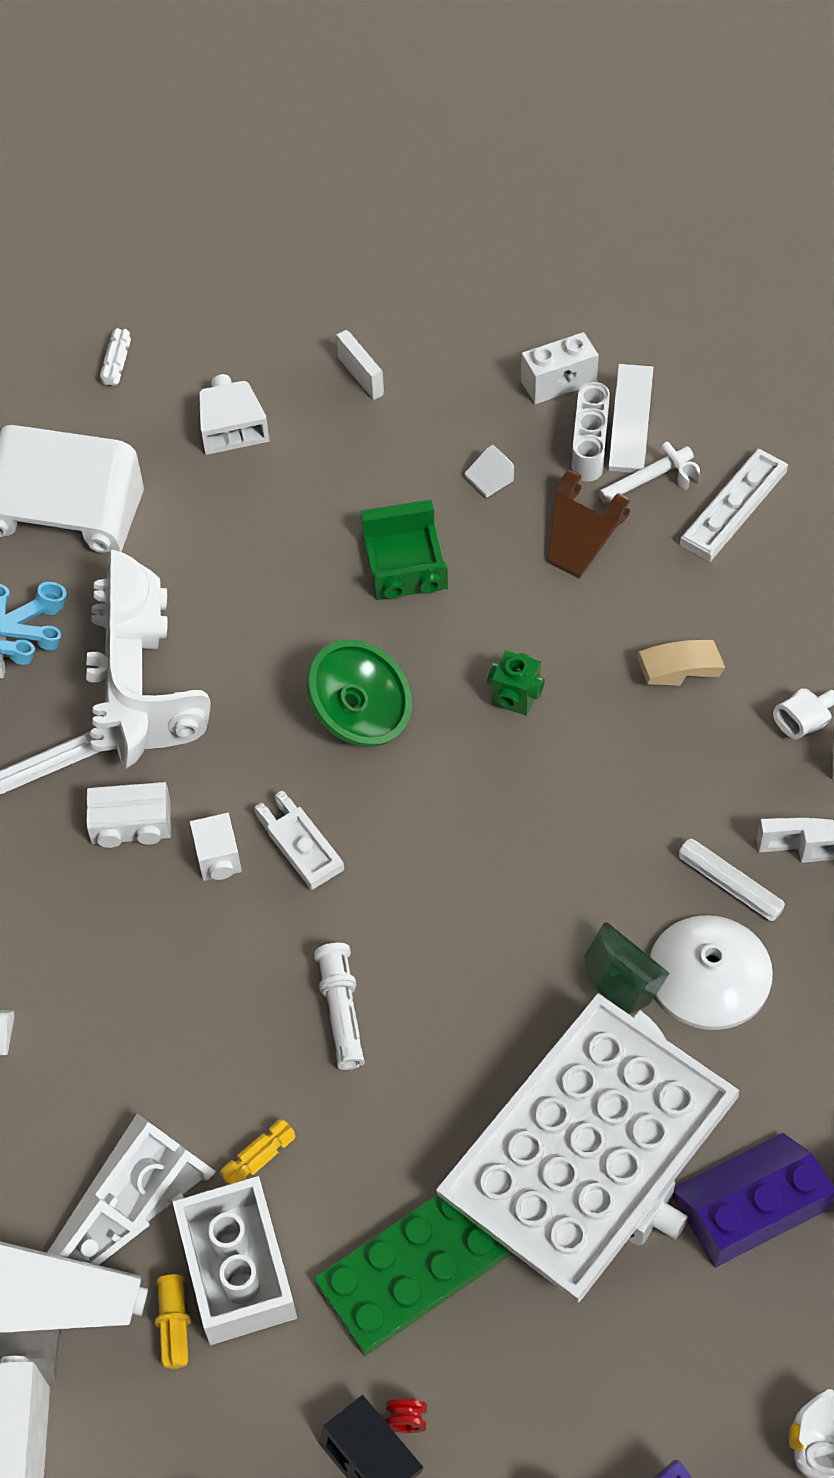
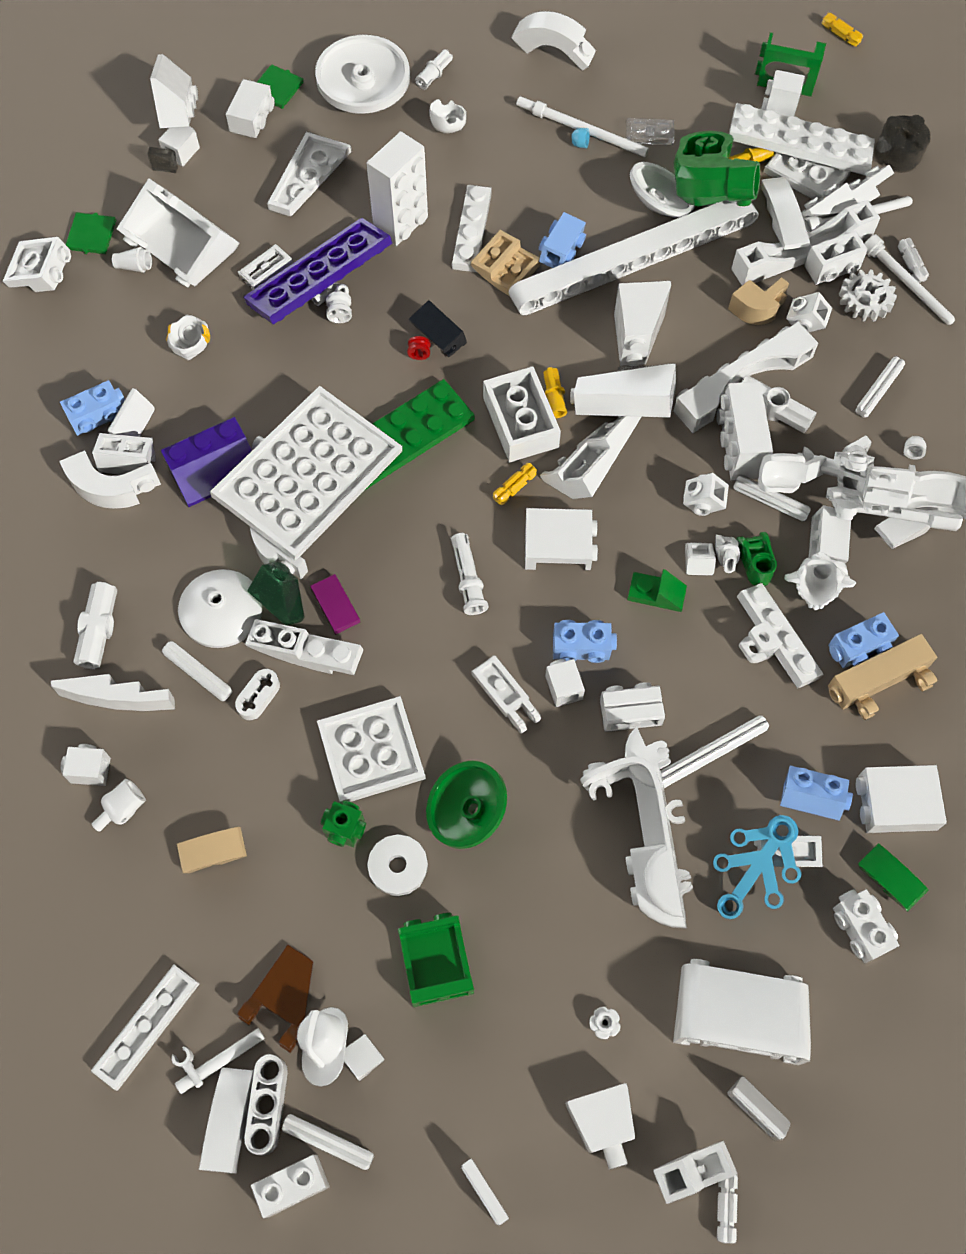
camera: 175 degrees right, 10 degrees up
(58, 416) = (759, 1109): none -> white slope
(64, 979) = (656, 591): none -> green slope
(147, 375) = (694, 1172): none -> white brick
(182, 901) = (583, 641): none -> light blue brick
(197, 1048) = (559, 537): none -> white panel
(217, 499) = (600, 1030): none -> white plate
(448, 632) = (397, 847): none -> white tile
(483, 773) = (371, 750): none -> white plate
(524, 408) = (327, 1142): none -> white axle
(530, 479) = (323, 1044): none -> white piece
(539, 970) = (335, 604): none -> magenta tile
(579, 900) = (303, 649): none -> white slope
(635, 843) = (253, 690): none -> white beam

